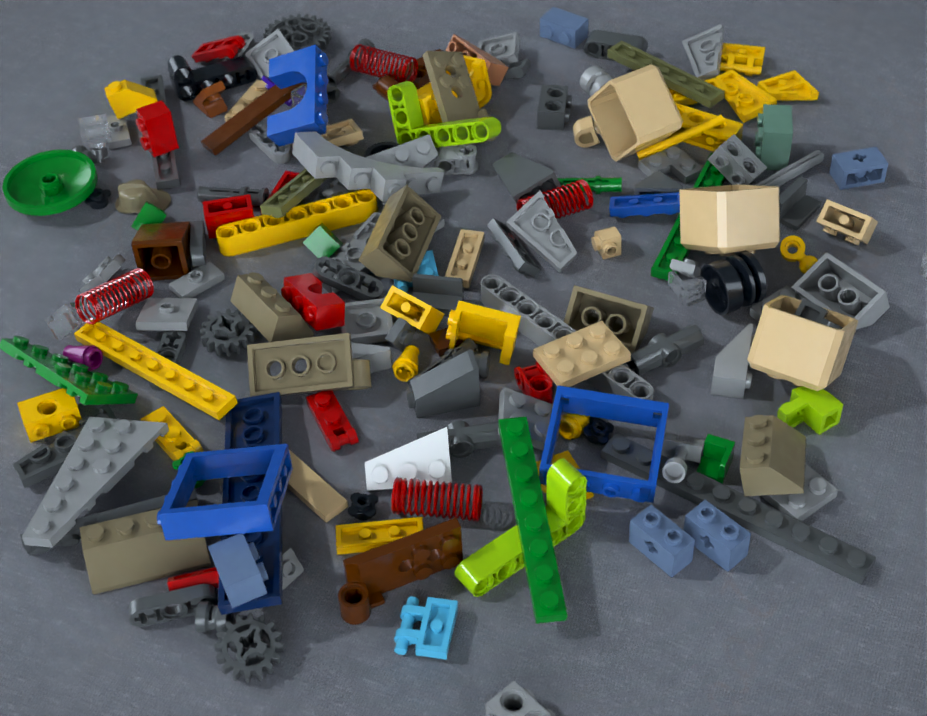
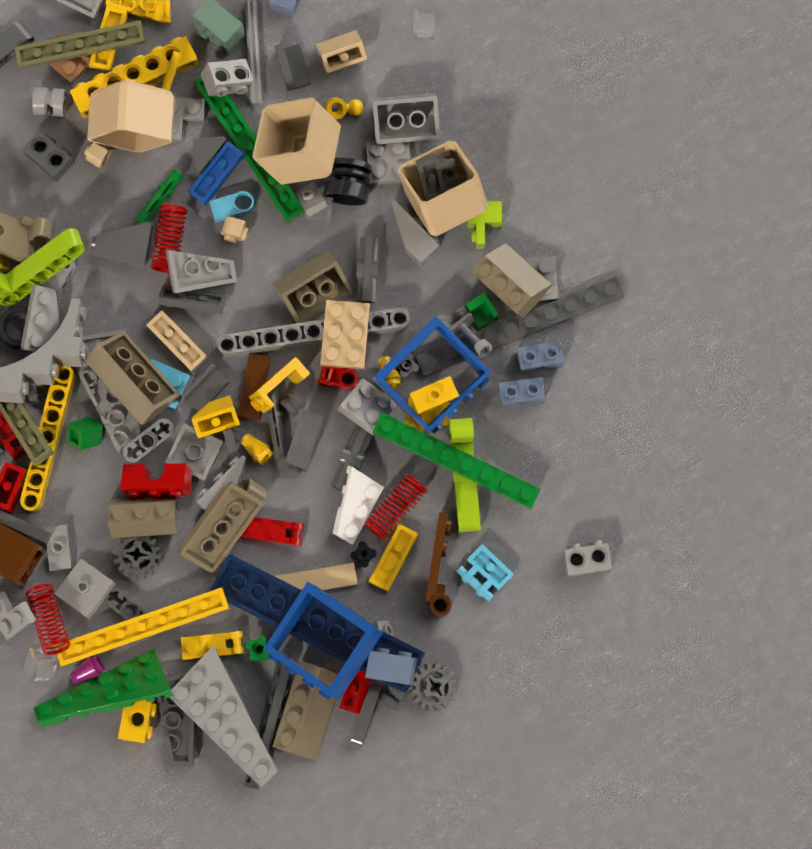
camera: 60 degrees left, 35 degrees up
(583, 446) = (434, 395): none -> yellow plate
(629, 230) = (226, 206): none -> medium azure piece

